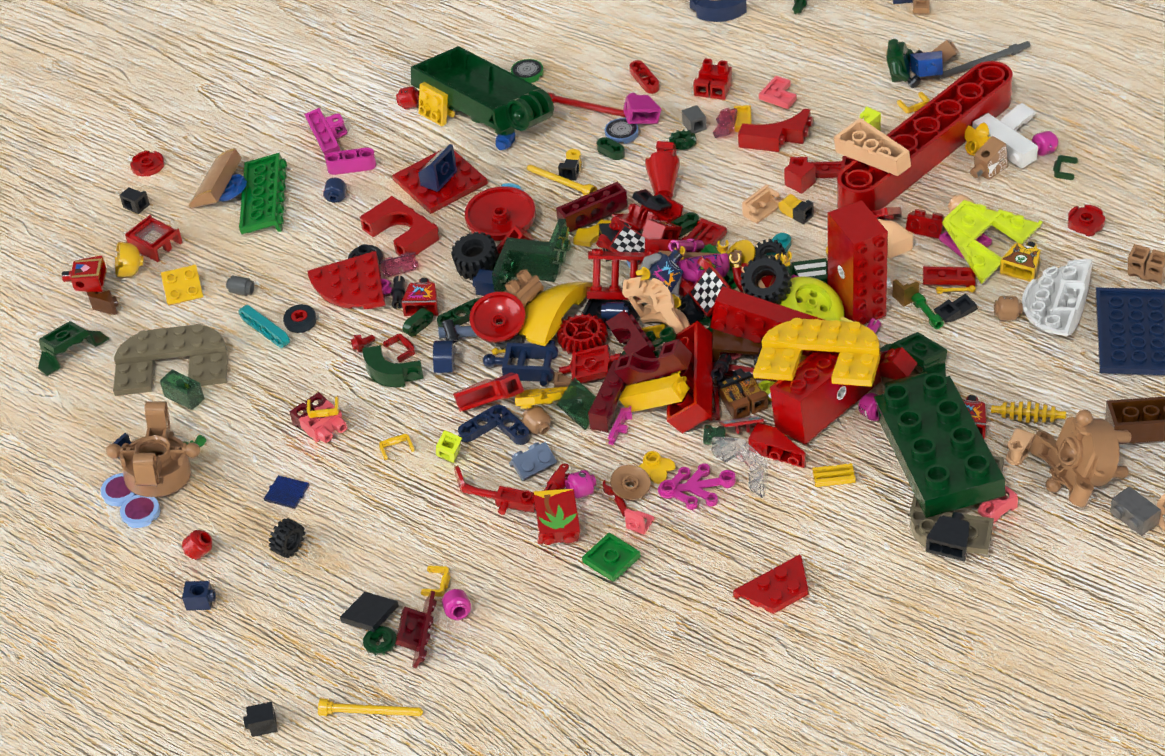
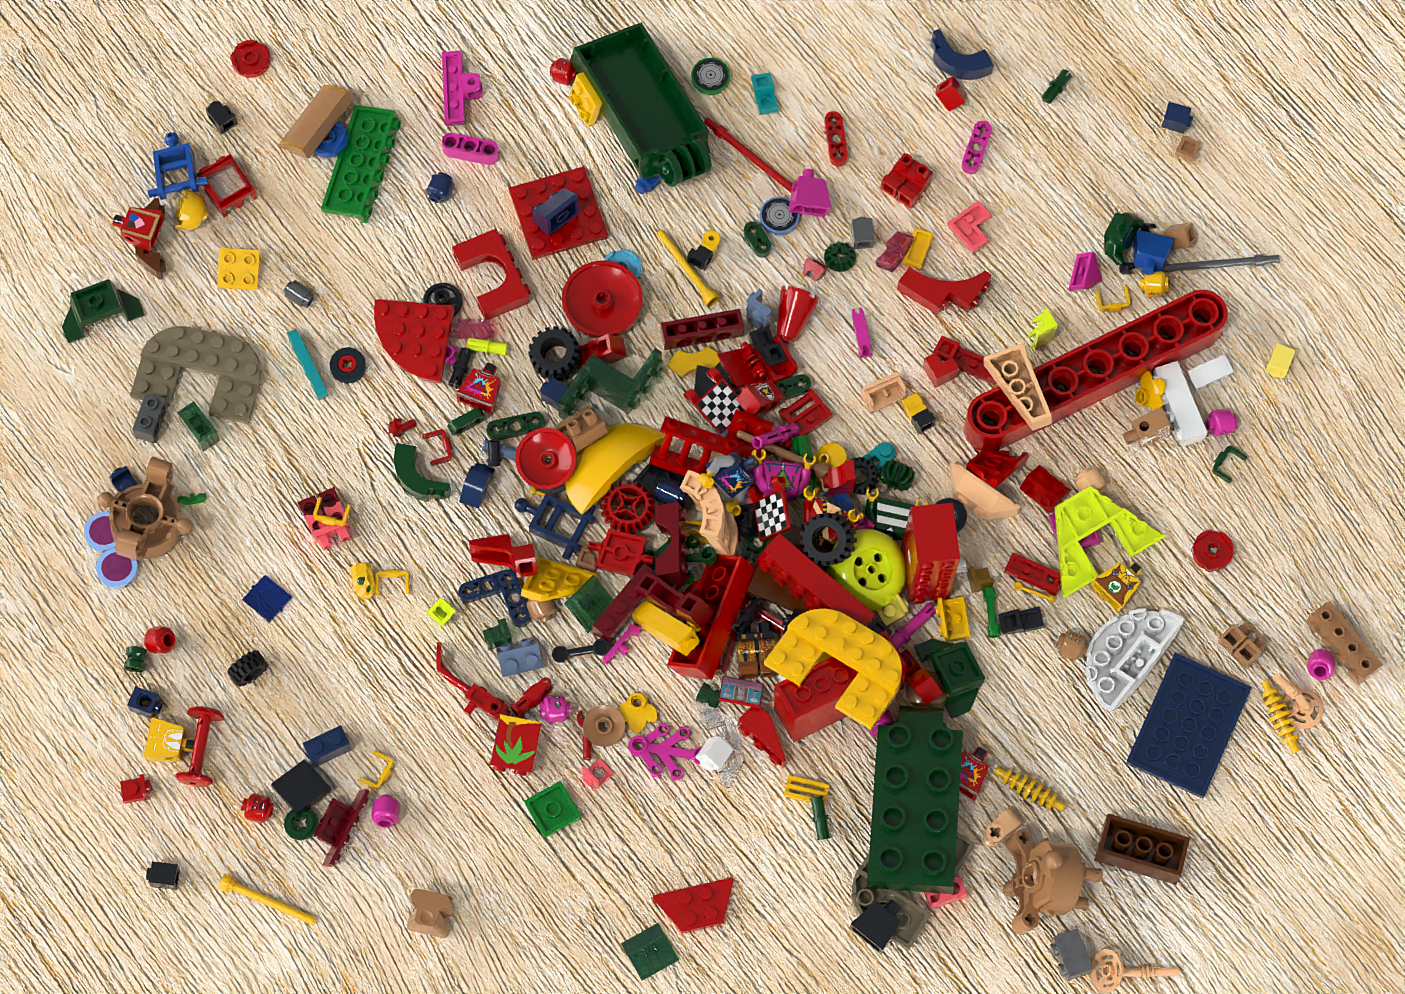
camera: 10 degrees right, 25 degrees up
(102, 231) = (174, 158): none -> blue piece
(135, 397) = (150, 418): none -> dark grey brick
(178, 567) = (135, 659): none -> dark green wheel
(212, 664) = (135, 789): none -> red bracket
(229, 617) = (166, 742): none -> yellow torso
(264, 631) = (194, 776): none -> red hose
(333, 640) = (257, 808): none -> red head
(368, 450) = (363, 580): none -> yellow rock
(382, 573) = (327, 746): none -> dark blue brick
(416, 272) = (487, 346): none -> neon yellow axle
(510, 447) = (497, 635): none -> clear green panel
(530, 662) = (430, 913): none -> medium nougat piece
(574, 68) = (764, 93): none -> teal slope
(601, 434) = (561, 654): none -> black bar
(633, 179) = (757, 312): none -> sand blue bracket
(721, 27) = (951, 93): none -> red panel
(724, 175) = (861, 332): none -> dark pink piece
(739, 466) = (714, 753): none -> white brick
(750, 635) = (649, 951): none -> clear green piece
(756, 247) = (840, 479): none -> red arch
(760, 46) = (977, 154): none -> dark pink beam
(800, 246) = (897, 475): none -> dark green gear
(856, 487) = (820, 818): none -> dark green pin
(883, 92) = (1085, 272): none -> dark pink slope
(898, 322) = (954, 619): none -> yellow bracket
(941, 81) = (1155, 284): none -> yellow head
(1067, 96) = (1280, 361): none -> light yellow brick

